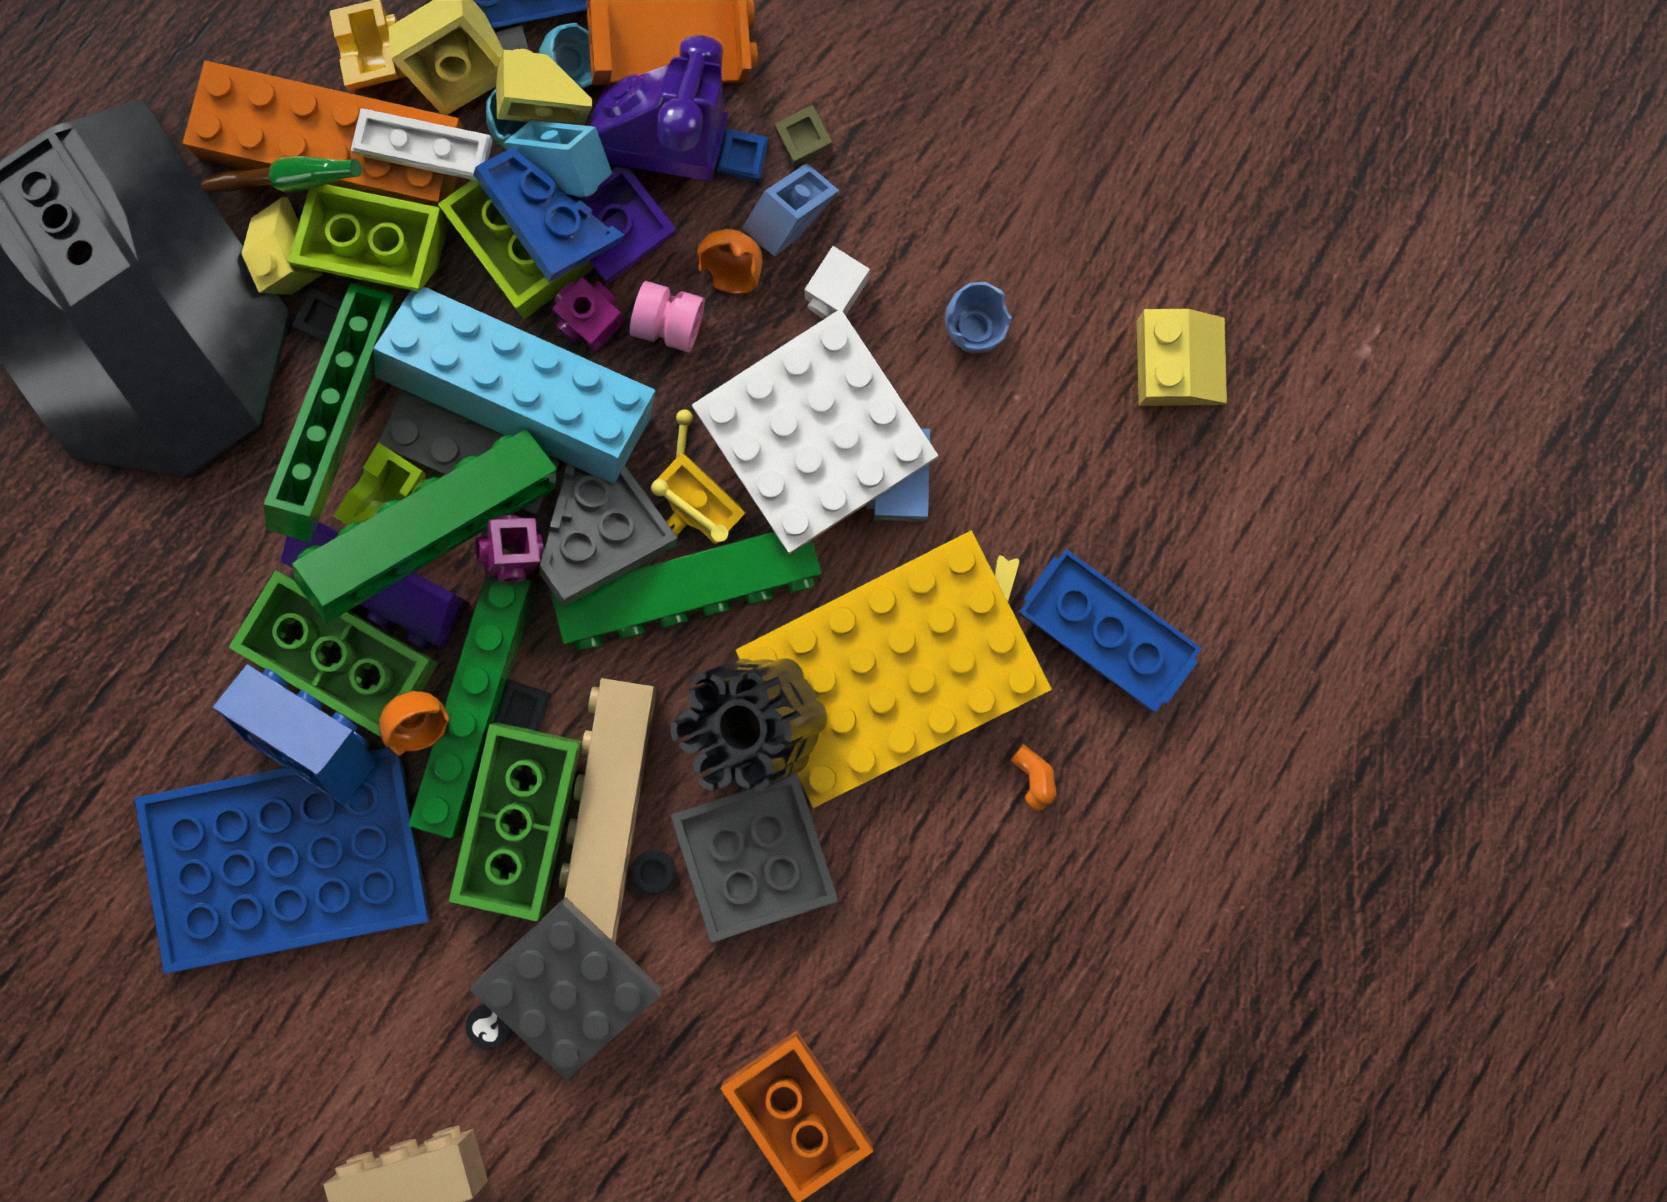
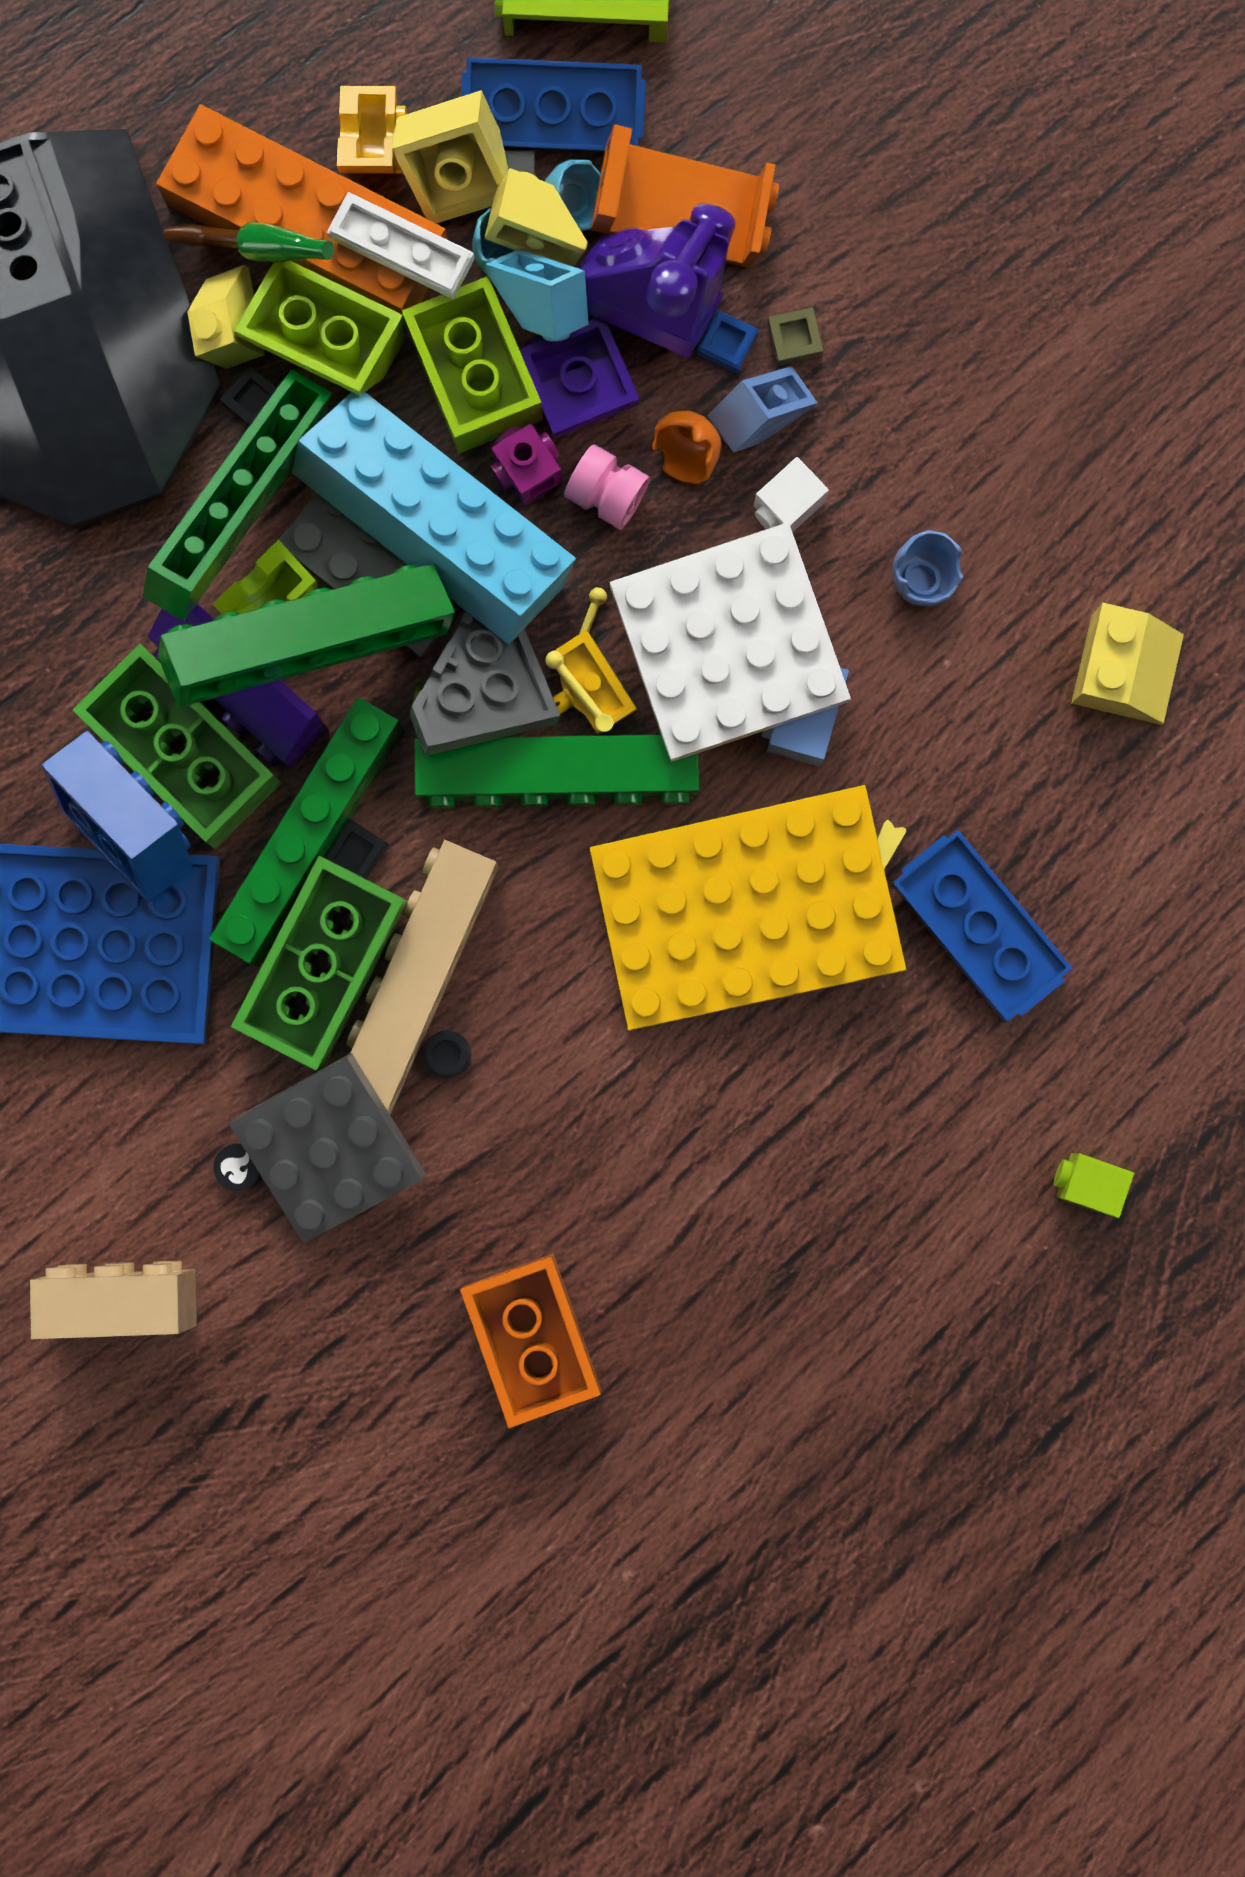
camera: 15 degrees right, 0 degrees up
(412, 722) = (241, 833): orange hair -> none
(517, 537) = (395, 672): magenta brick -> none
(544, 219) = (508, 354): blue wing -> none
(721, 729) = (554, 923): black piece -> none
(754, 858) = (554, 1065): dark grey plate -> none
(1040, 775) = (871, 1058): orange arm -> none
(1270, 840) = (1093, 1184): none -> lime brick

